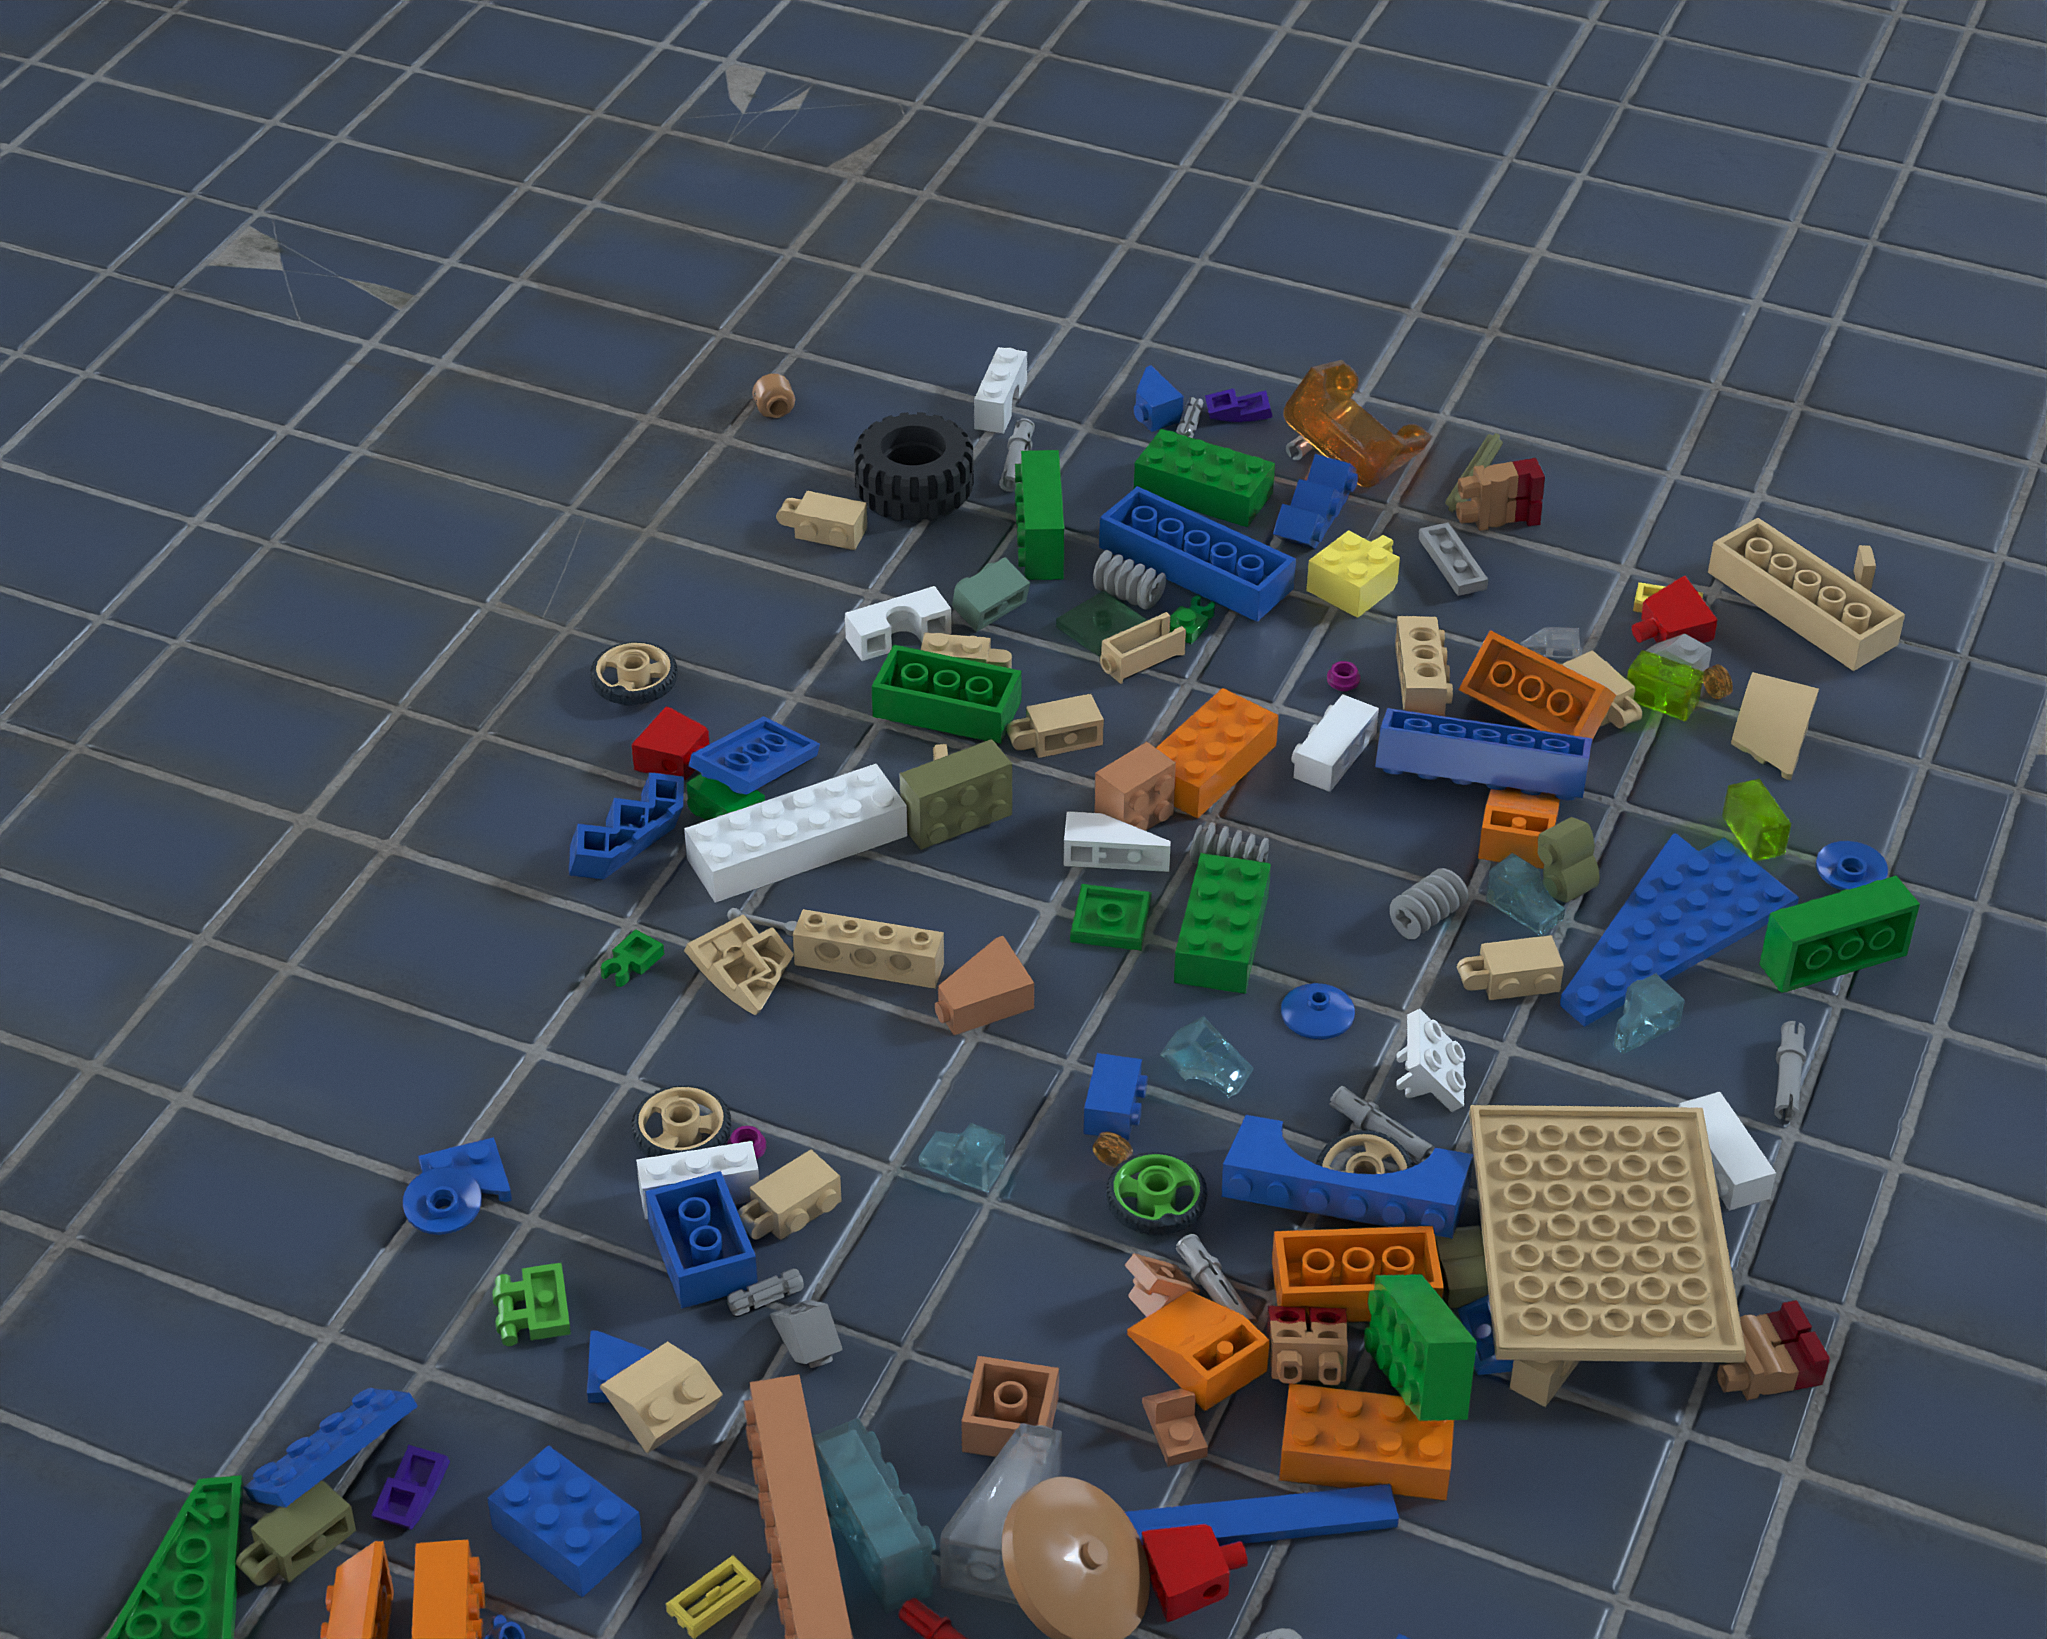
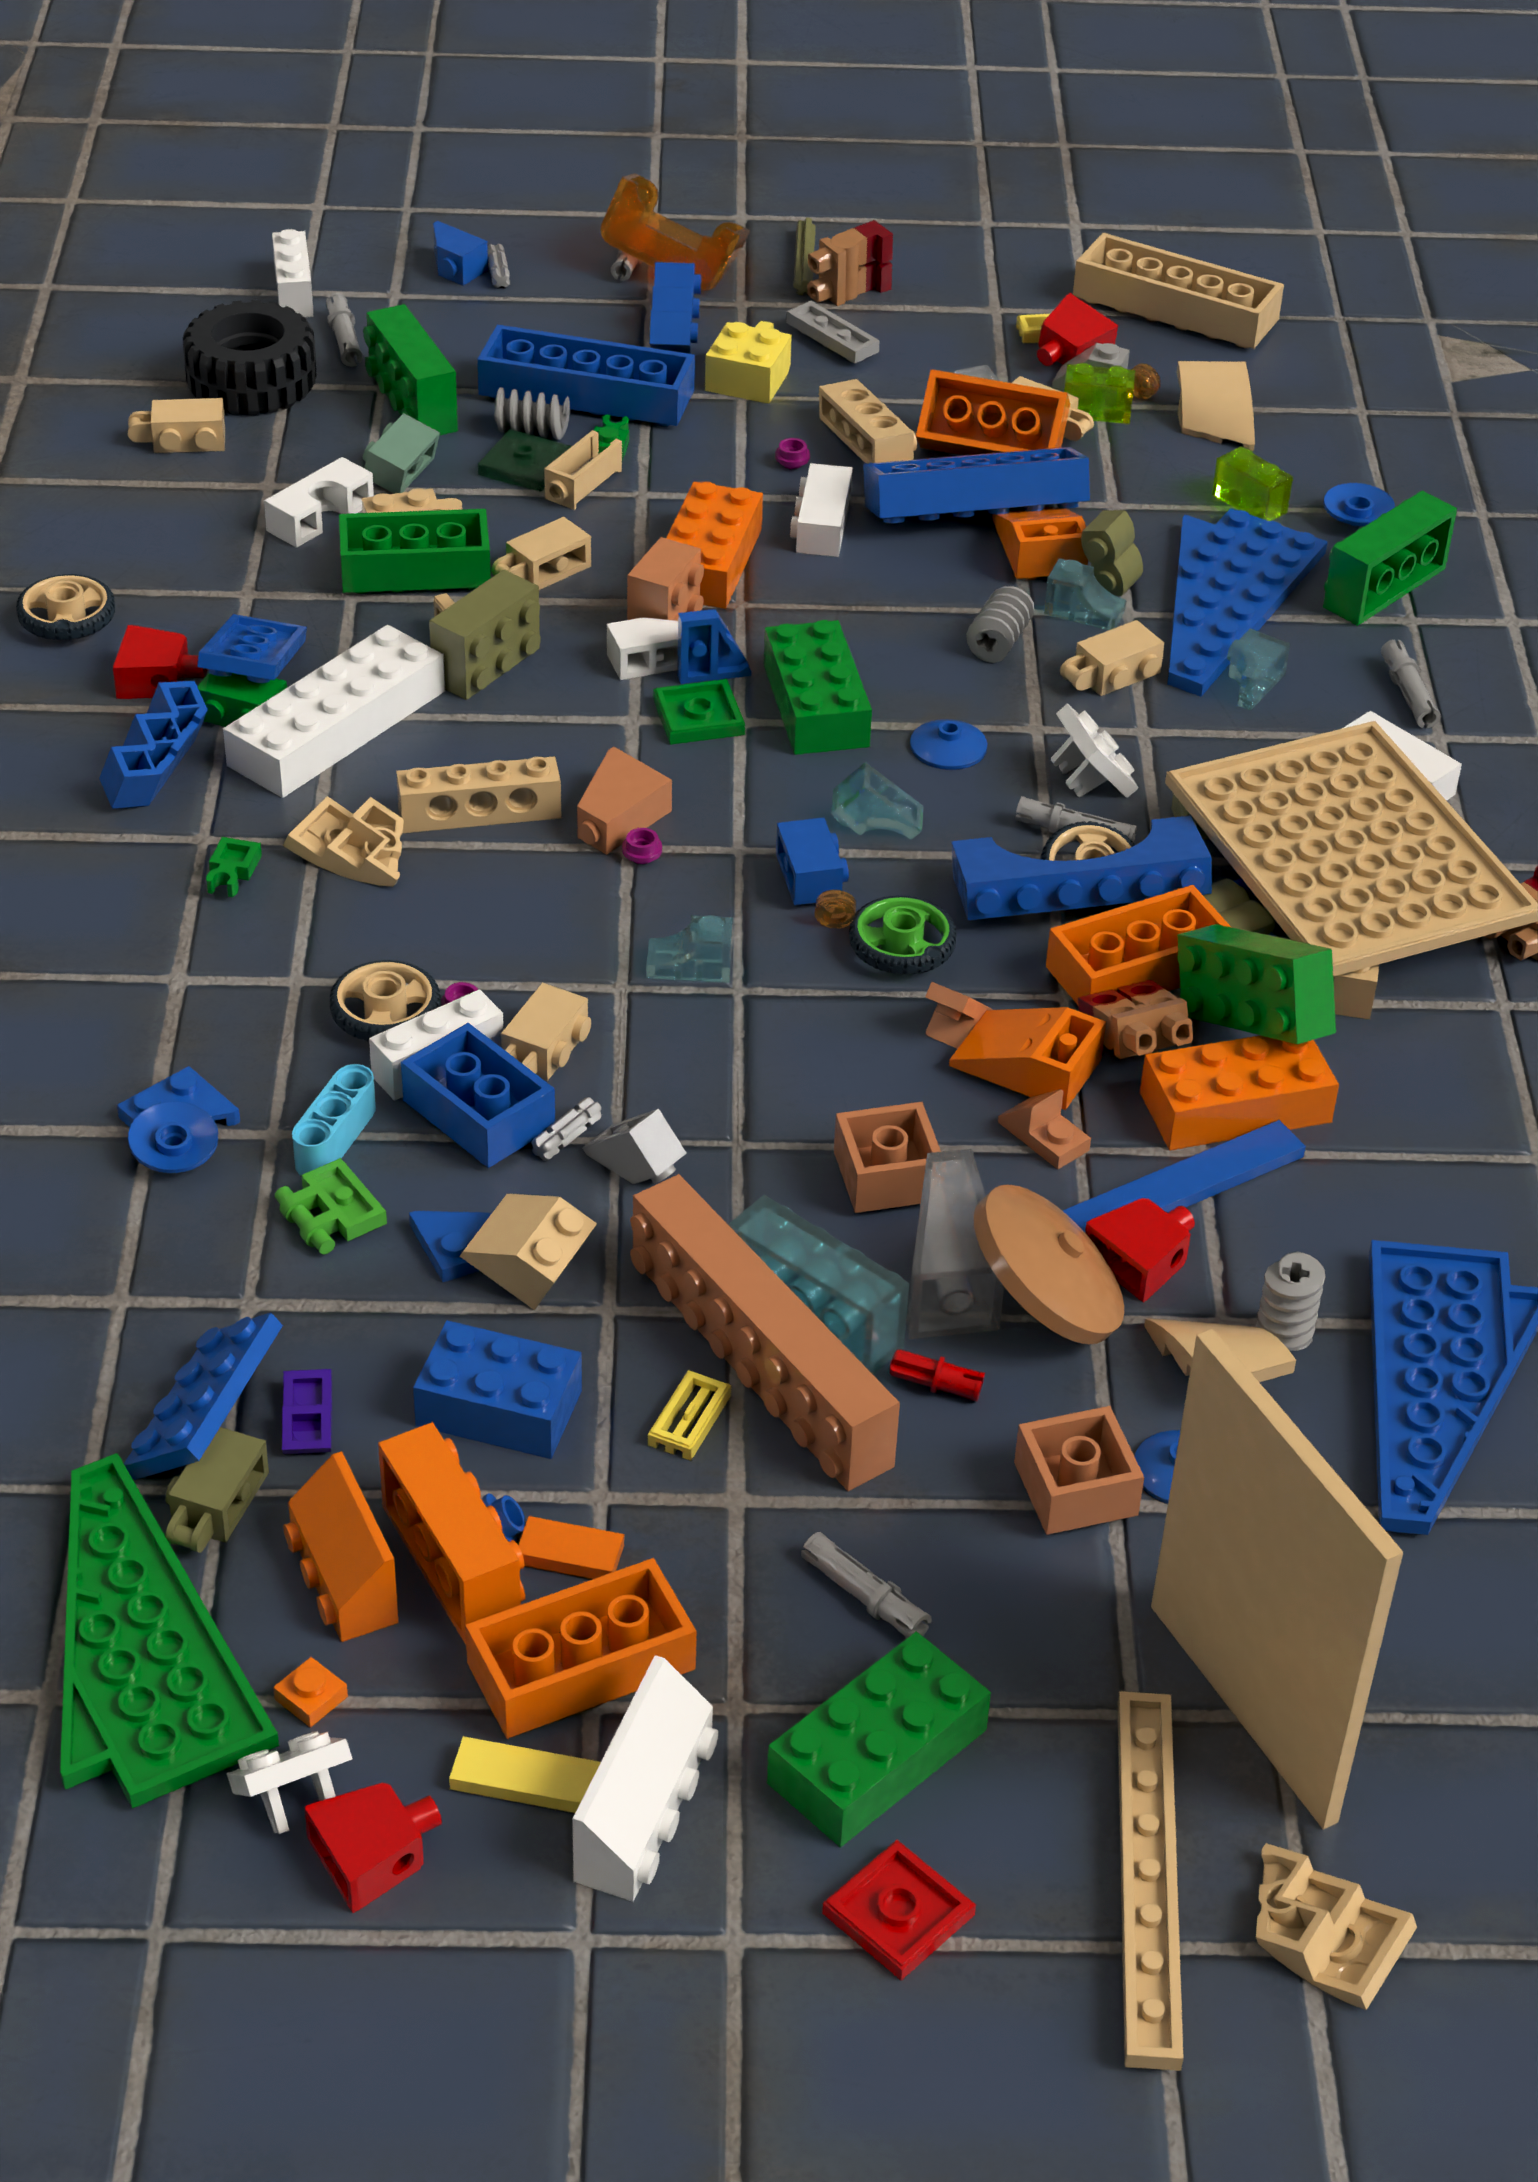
camera: 25 degrees left, 0 degrees up
(578, 1224) = (334, 1118): none -> medium azure beam
(773, 396) = (53, 326): medium nougat head -> none
(789, 927) = (313, 801): light grey hinge -> none
(983, 1037) = (642, 846): none -> magenta plate
(1143, 860) = (707, 649): none -> blue wing
(1205, 477) = (550, 304): green brick -> none
(1208, 1273) = (992, 987): light grey pin -> none
(1220, 844) = (760, 618): light grey piece -> none
(1228, 407) = (530, 247): dark purple slope -> none
(1865, 567) = (1213, 253): tan tile -> none

